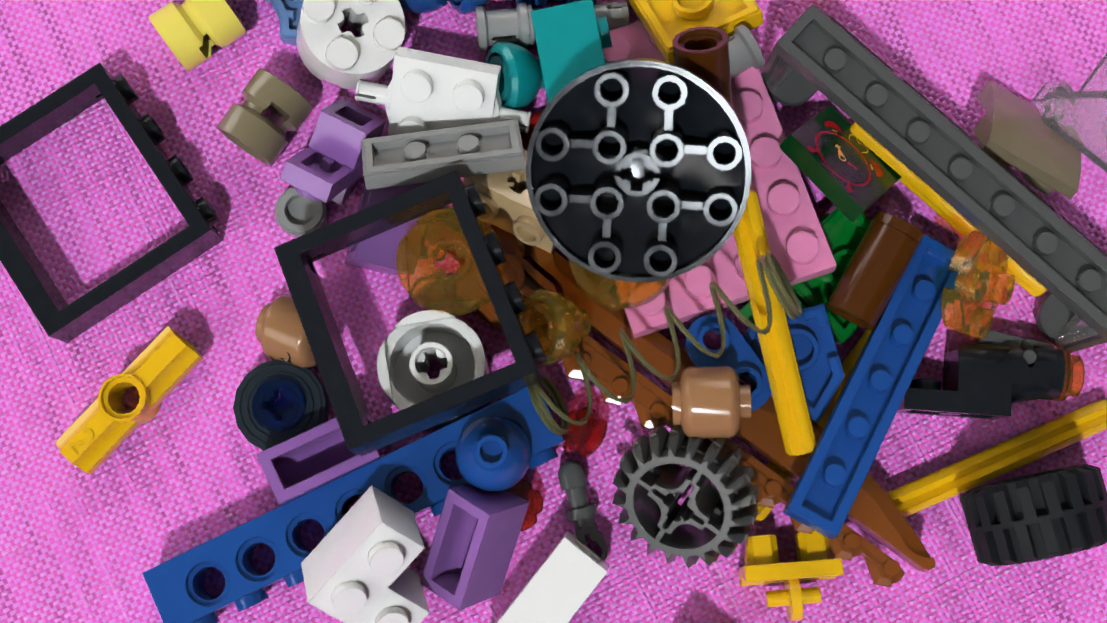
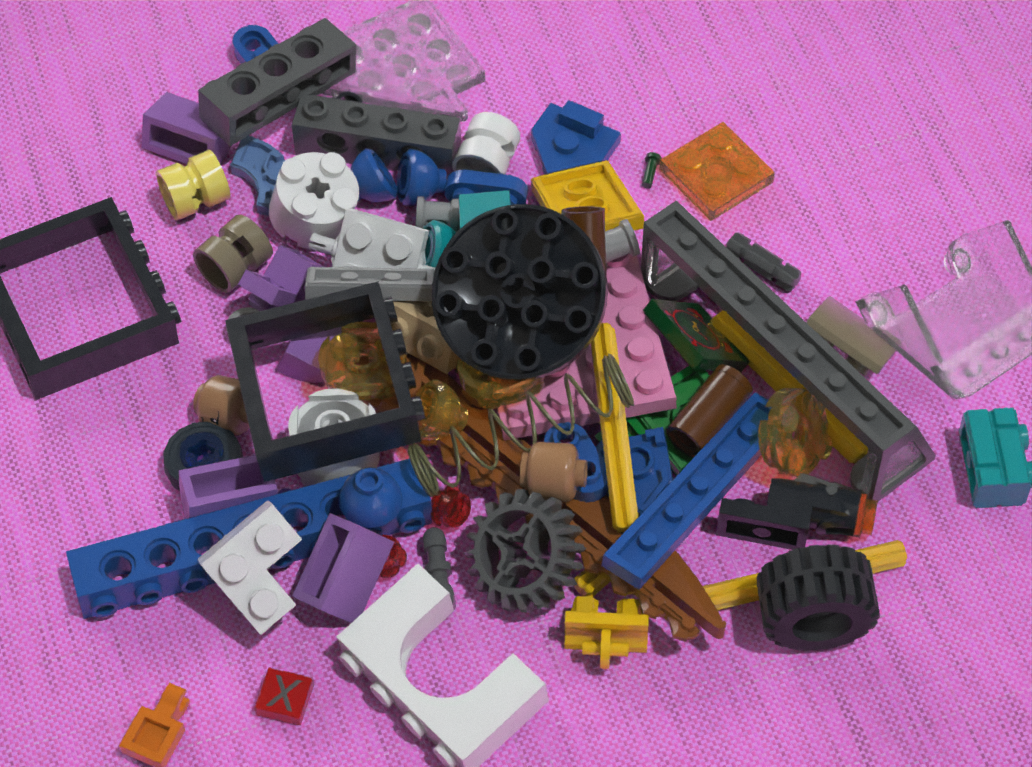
camera: 10 degrees right, 25 degrees down
(105, 423) = (61, 450): yellow piece -> none
(898, 35) = (764, 262): none -> dark grey axle

